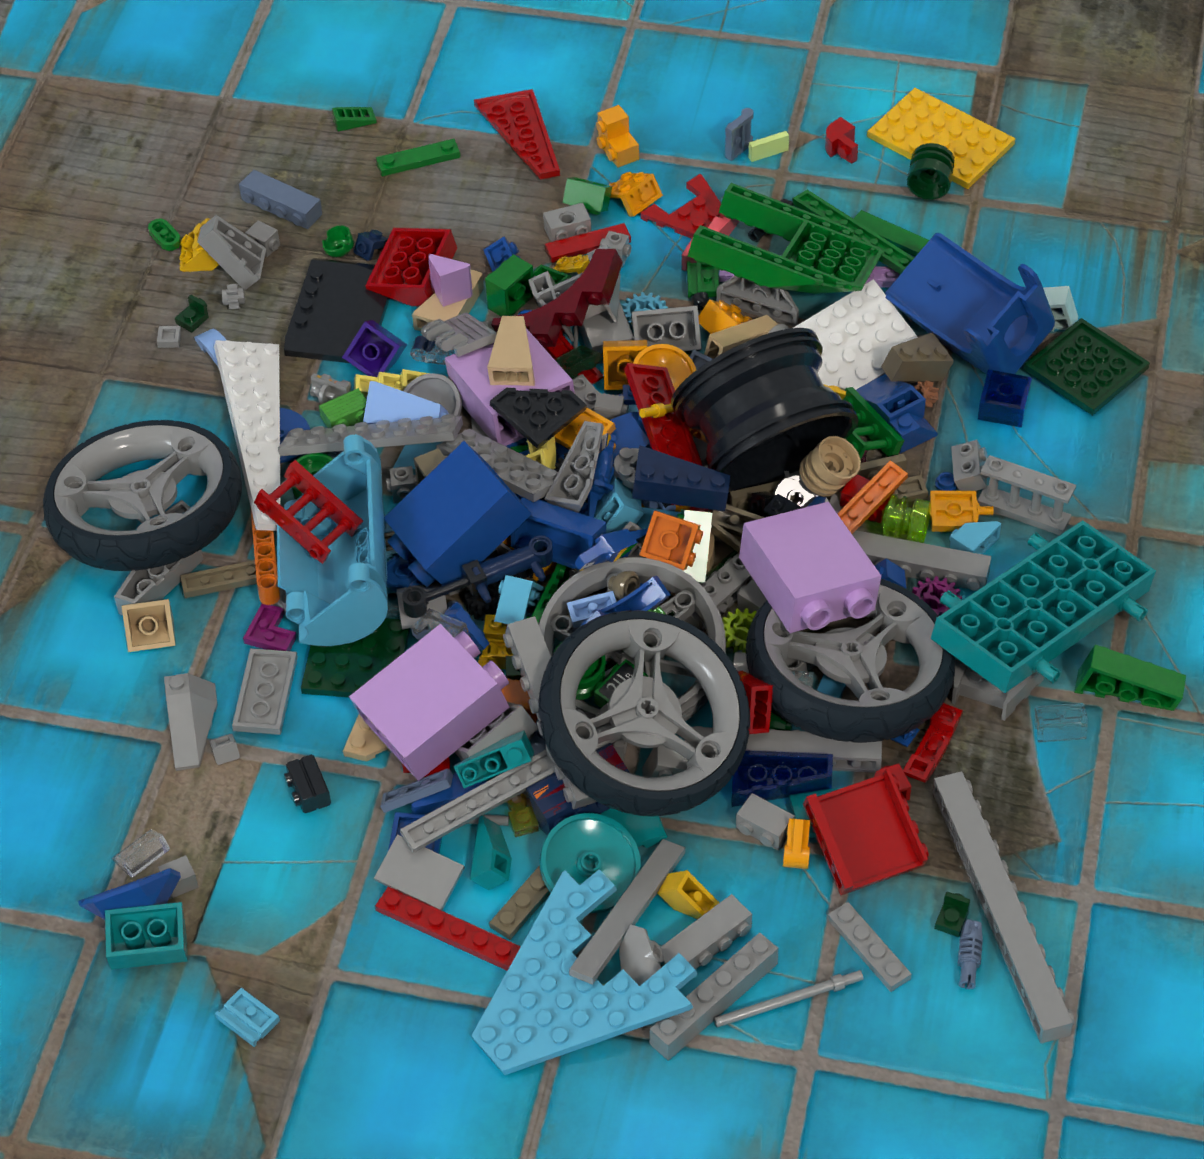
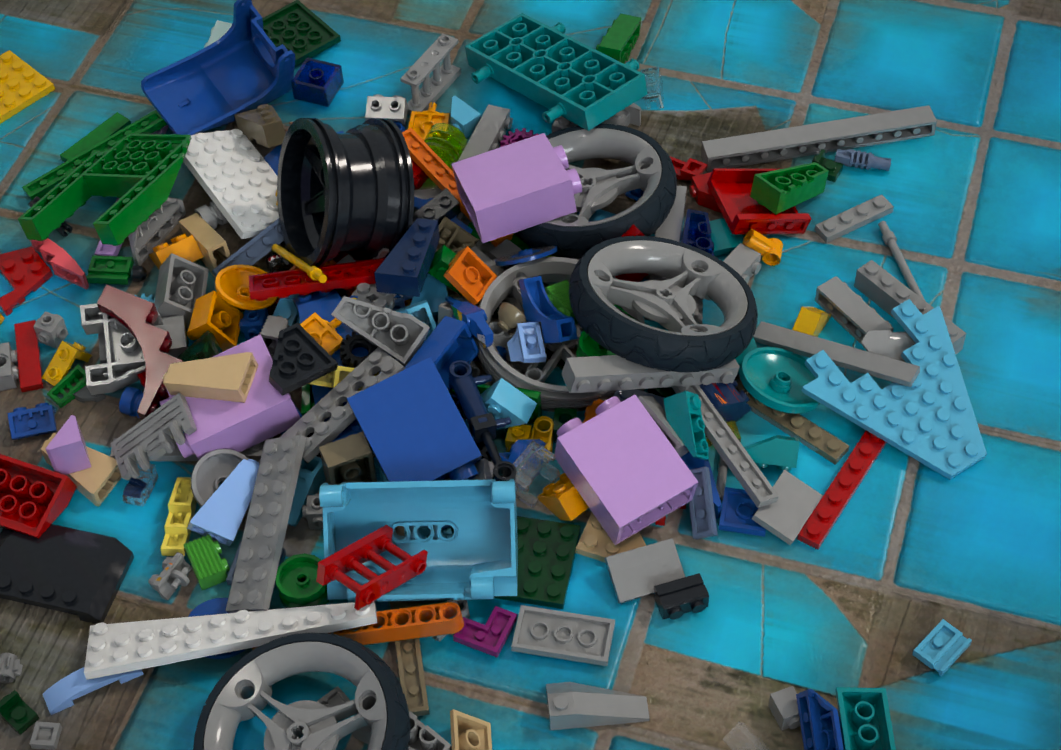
camera: 85 degrees left, 0 degrees up
(224, 749) = (627, 674): light grey slope -> none
(338, 751) = (640, 569): none -> light grey tile
(374, 349) = (131, 530): dark purple slope -> none
(509, 286) = (79, 401): green brick -> none
(728, 599) = (525, 255): none -> blue piece
(887, 859) = (788, 186): none -> green wedge
(930, 171) = (37, 98): dark green wheel -> none

